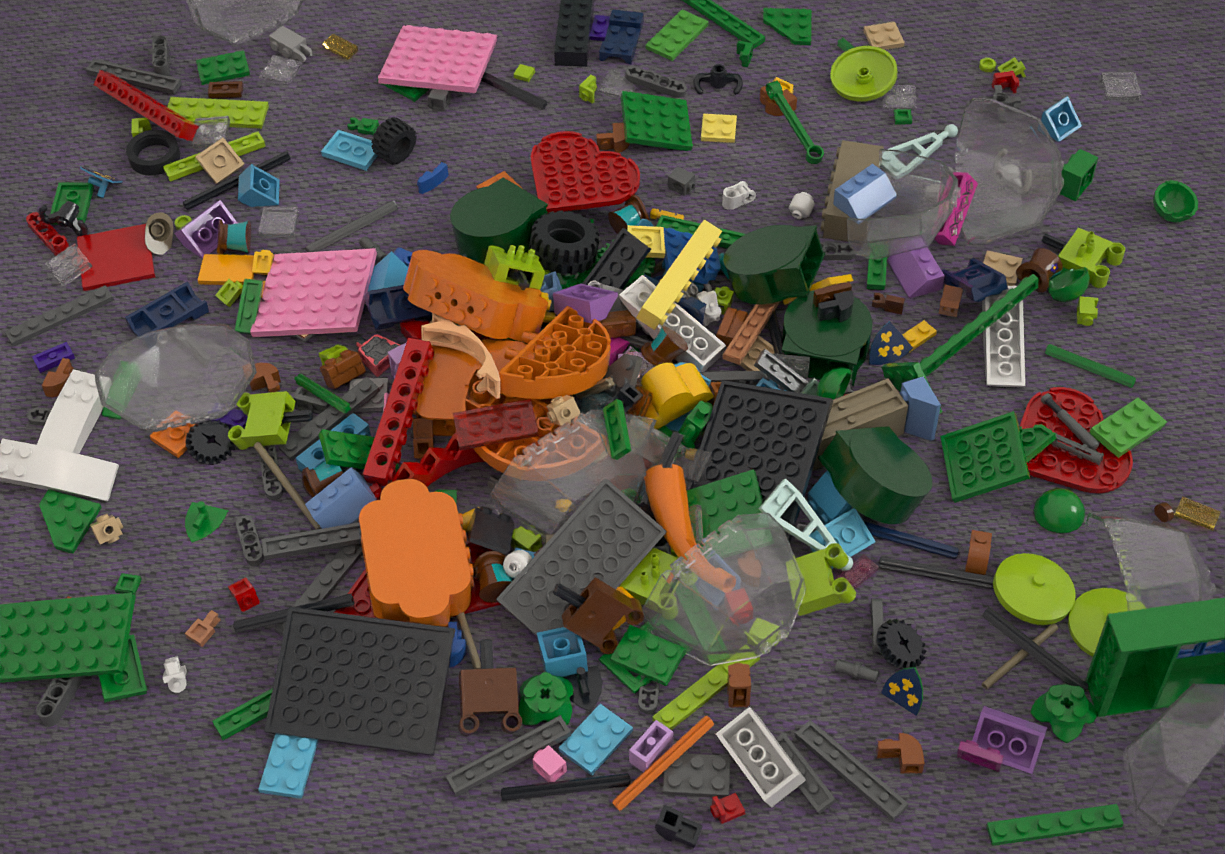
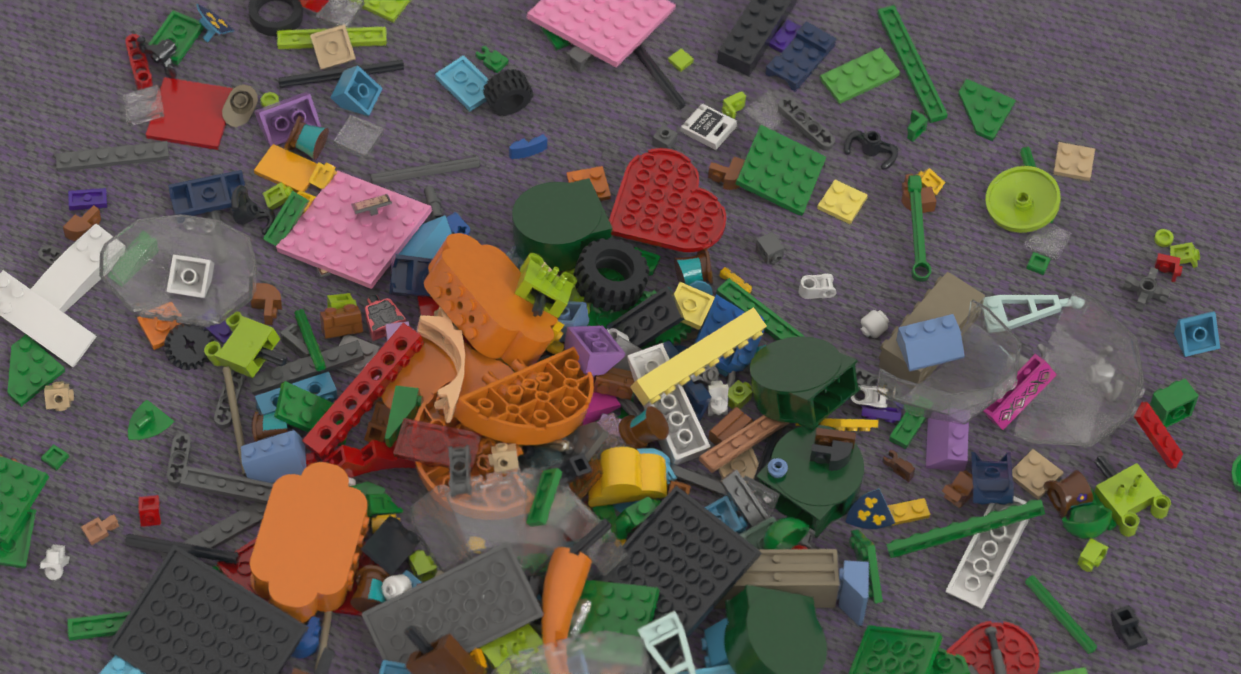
camera: 20 degrees right, 5 degrees up
(183, 381) = (190, 276): none -> white slope
(209, 311) = (247, 211): none -> black piece
(323, 264) = (371, 204): none -> piece
(443, 407) = (404, 405): none -> green slope
(465, 504) = (381, 504): none -> green tile
(530, 434) = (460, 470): none -> dark grey piece
(544, 129) = (664, 138): none -> dark grey plate
(572, 110) = (705, 123): none -> white container
(797, 336) = (777, 472): none -> medium blue plate
(836, 258) = (871, 397): none -> white piece
(855, 268) = (888, 414): none -> dark purple plate
(1084, 197) = (1158, 435): none -> red plate
(1149, 353) = (1127, 628): none -> black brick

